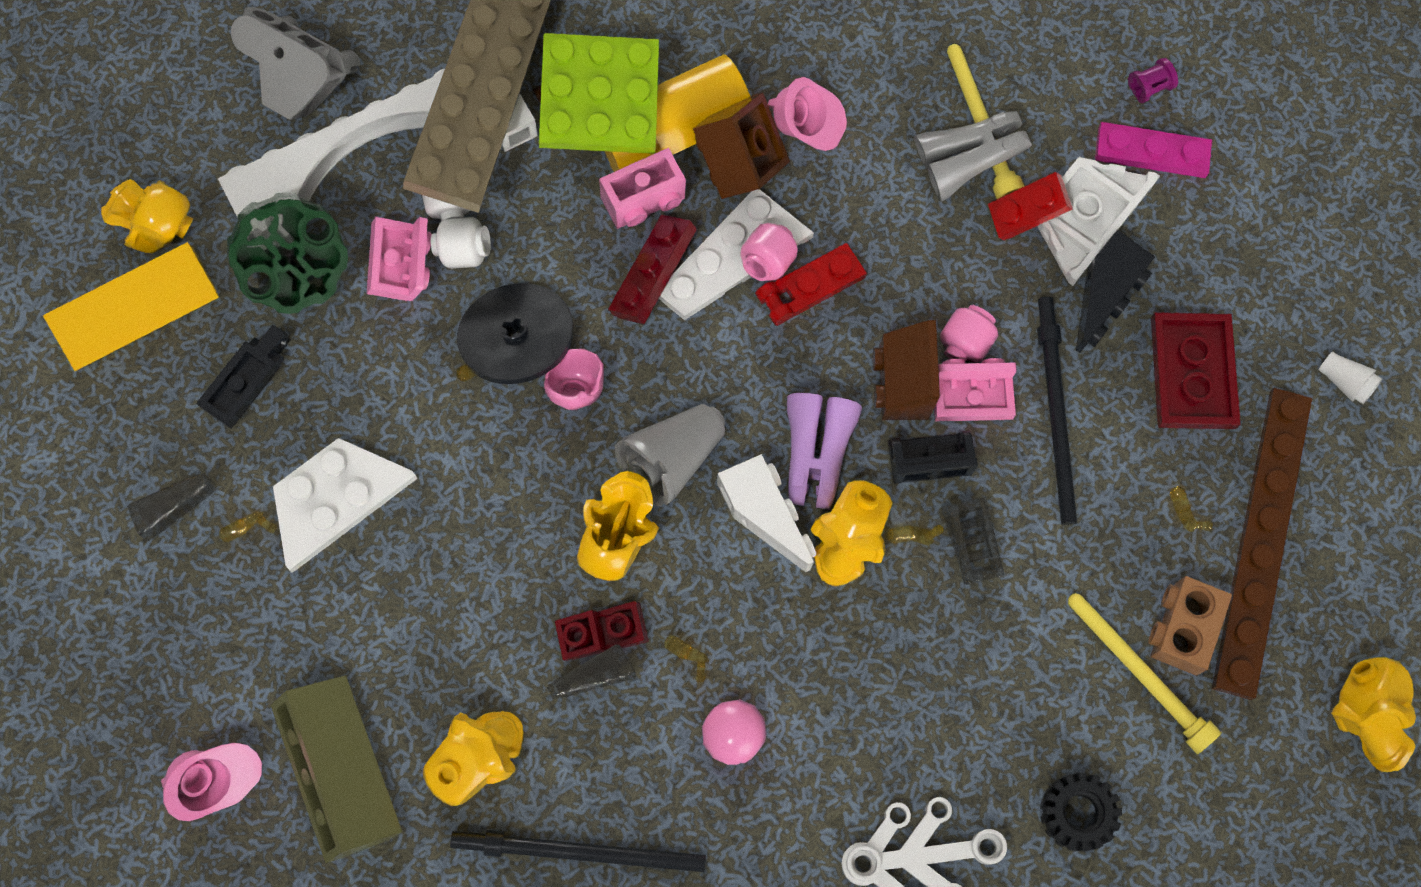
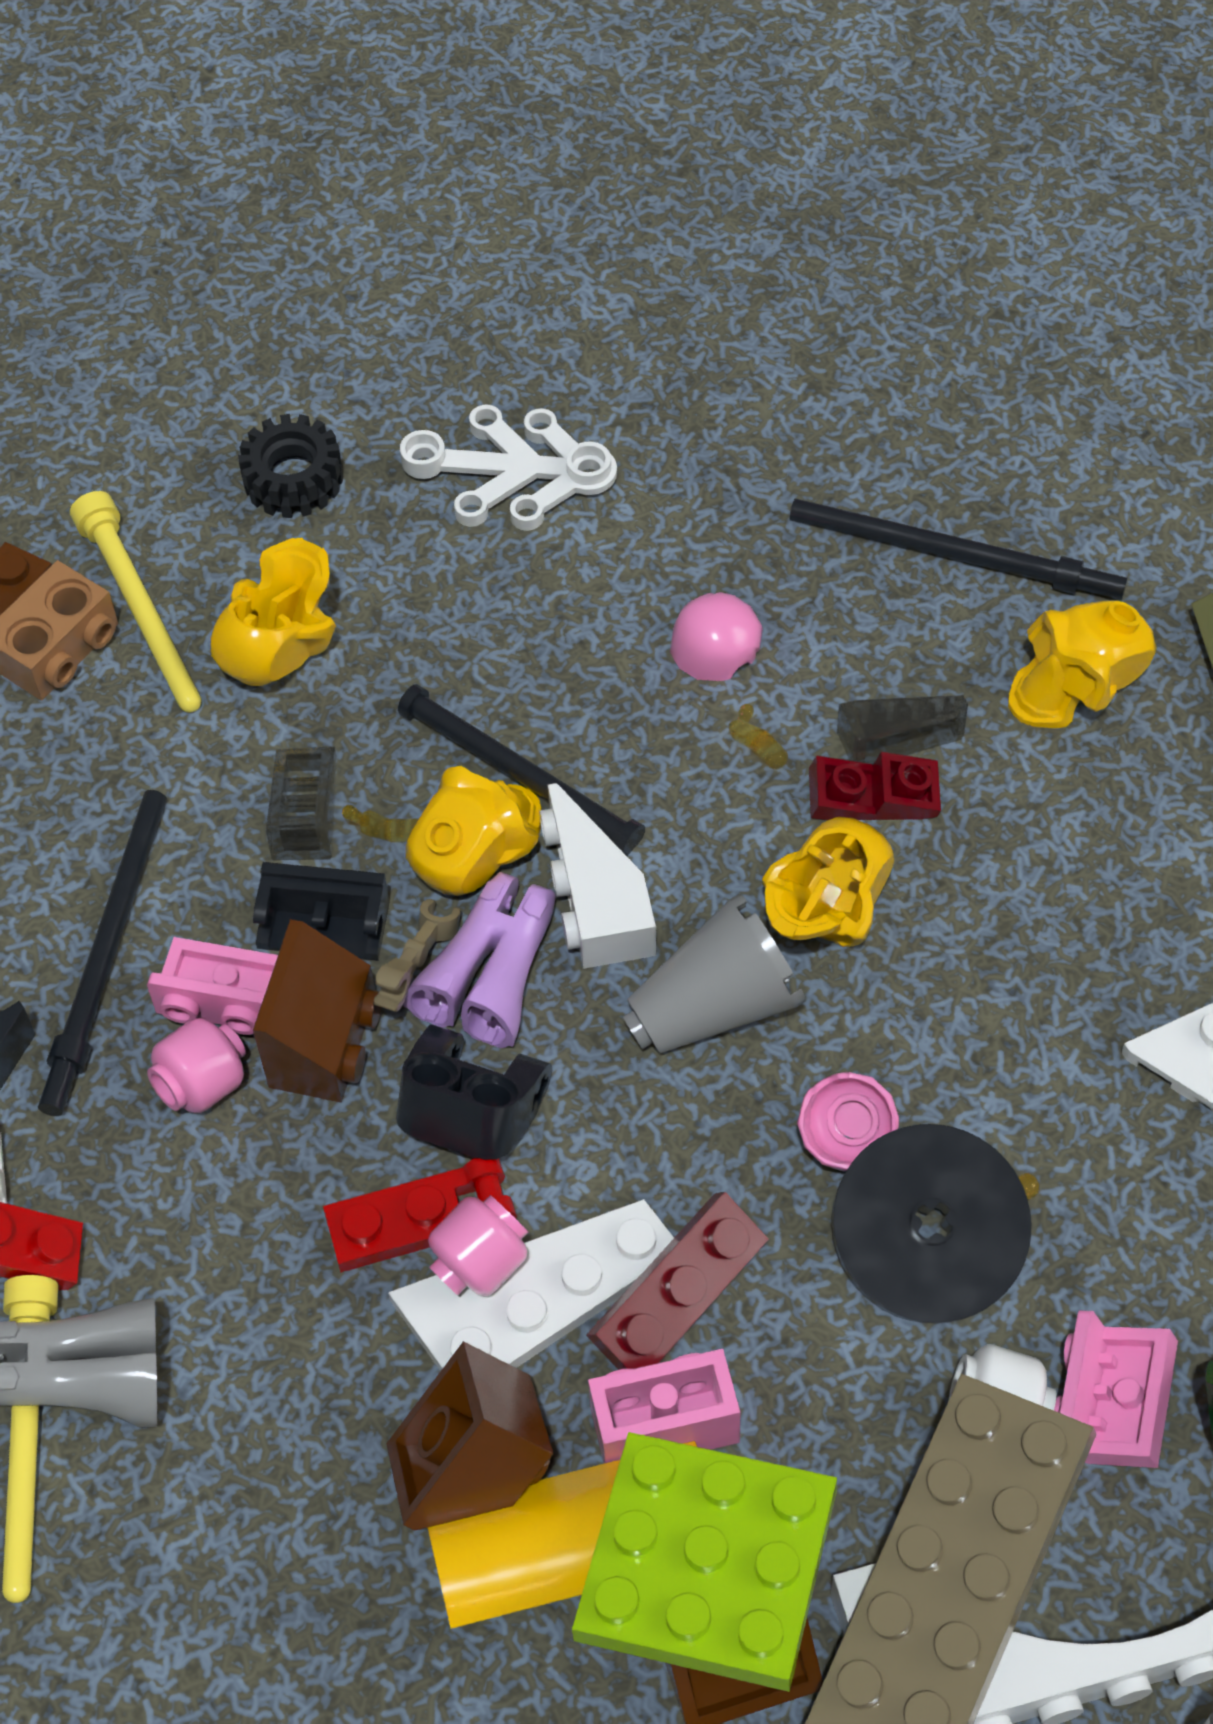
camera: 160 degrees left, 15 degrees down
(804, 344) = (465, 1103): none -> black piece
(809, 114) = (332, 1494): bright pink piece -> none
(840, 593) = (417, 704): none -> black bar
(867, 405) = (397, 974): none -> dark tan piece
(1041, 658) = (277, 622): none -> yellow head

